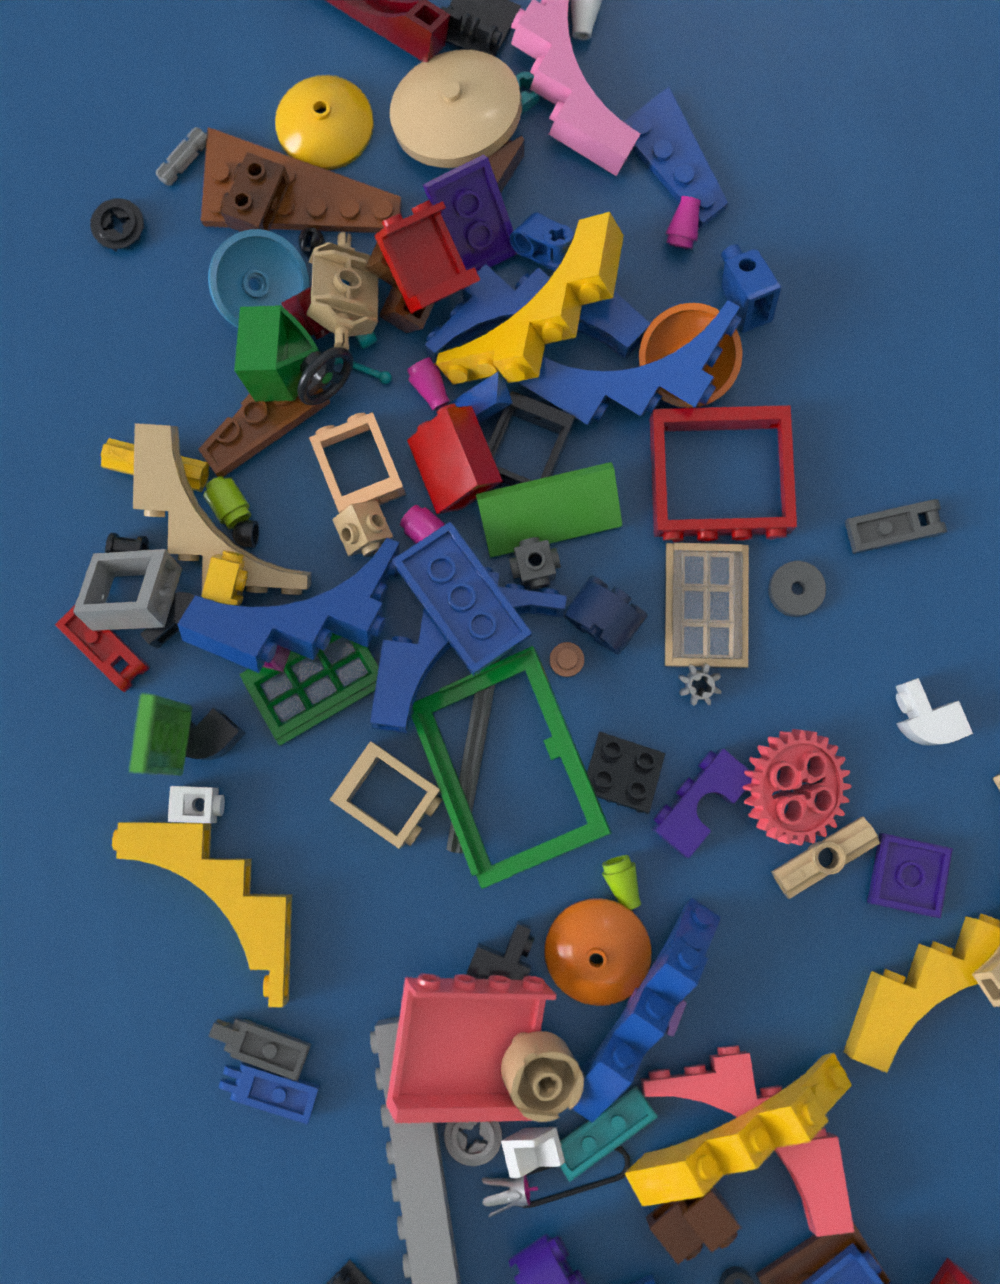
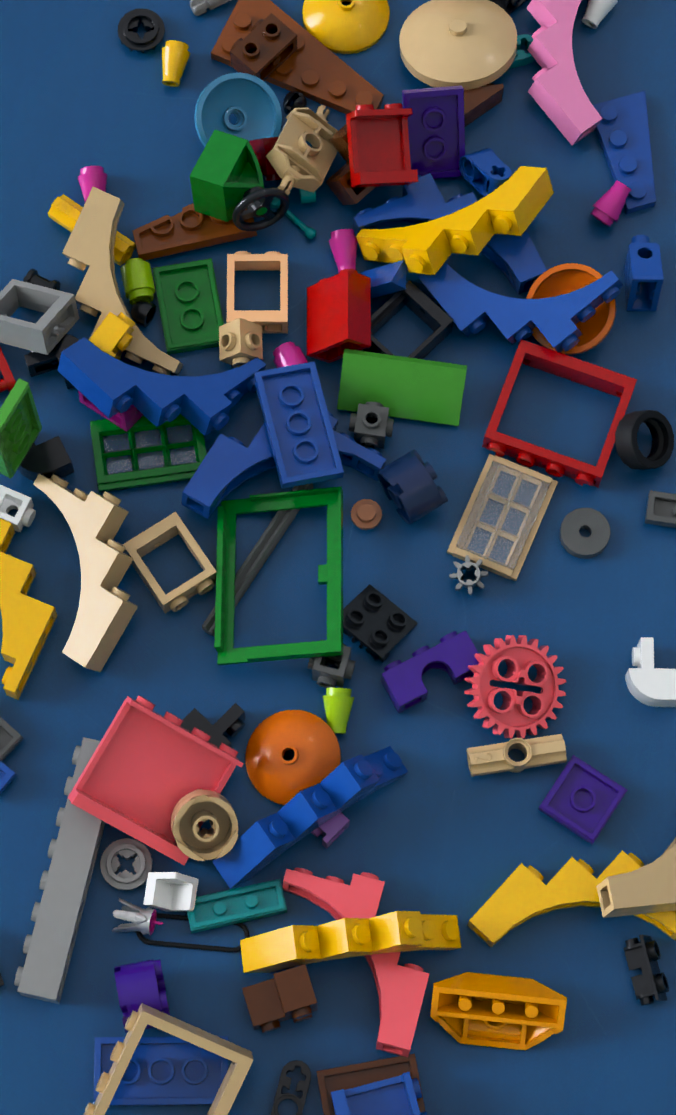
camera: 15 degrees right, 10 degrees down
(133, 410) = (90, 177): none -> dark pink cone
(166, 245) = (174, 60): none -> yellow cone
(290, 506) = (188, 305): none -> green tile
(317, 828) = (102, 605): none -> arch
(611, 847) = (331, 677): none -> dark grey brick
(838, 462) = (661, 435): none -> black tyre
(918, 1135) = (497, 1010): none -> light orange wedge

